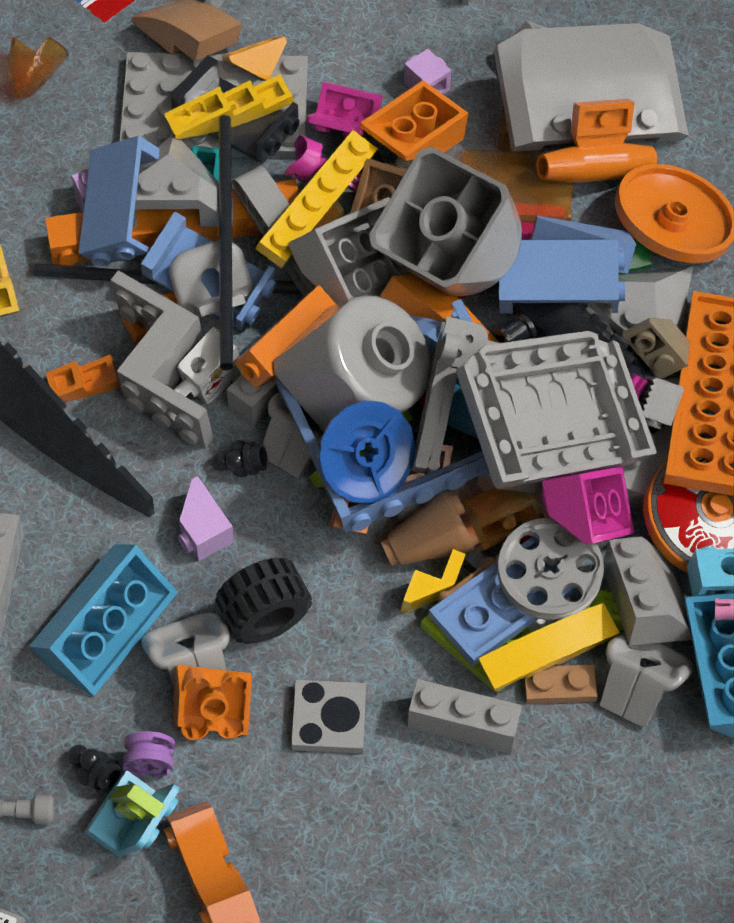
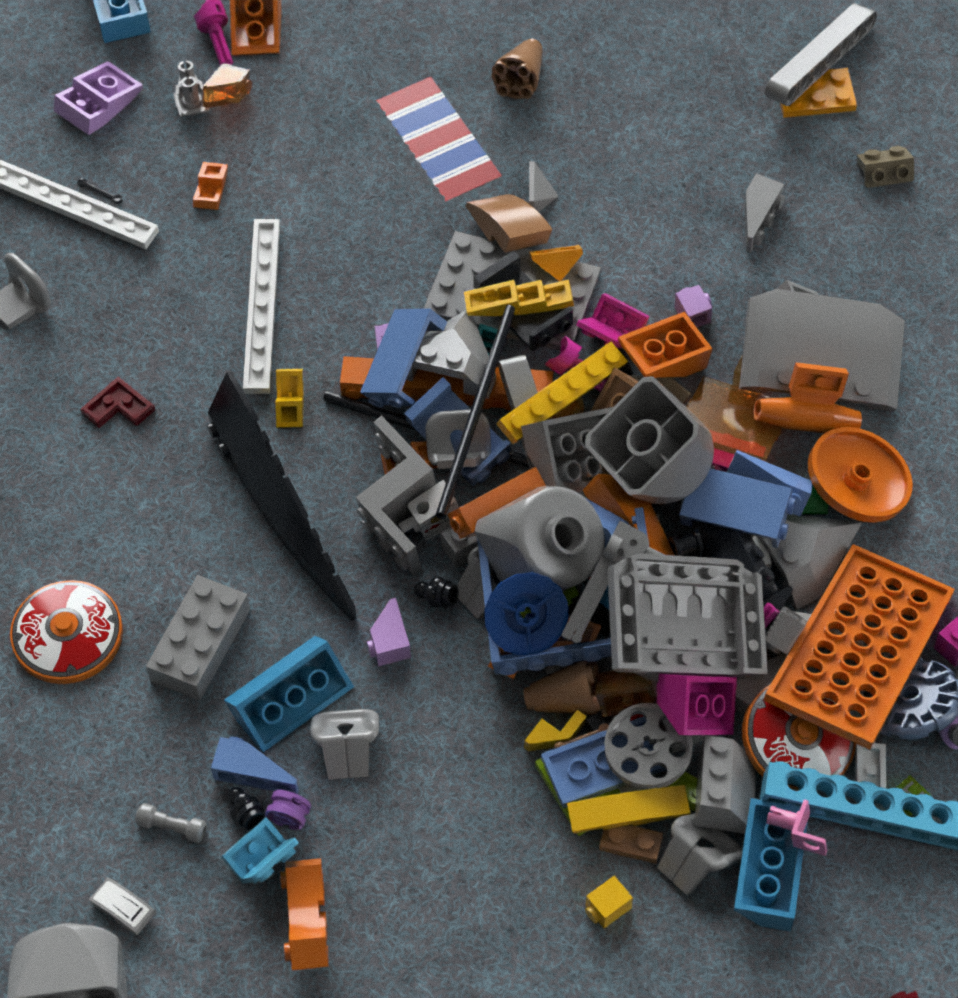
camera: 20 degrees right, 0 degrees up
(31, 69) = (374, 226): clear orange helmet -> none
(77, 381) = (329, 496): orange slope -> none
(81, 716) = (245, 765): none -> medium blue slope
(135, 802) = (261, 845): lime plate -> none
(211, 702) = (348, 782): orange slope -> none
(263, 600) = (413, 711): black tyre -> none
(329, 716) = (439, 817): light grey tile -> none
(464, 716) = (543, 846): light grey brick -> none
(559, 760) = (608, 902): none -> yellow brick
(659, 345) = (802, 584): dark tan slope -> none

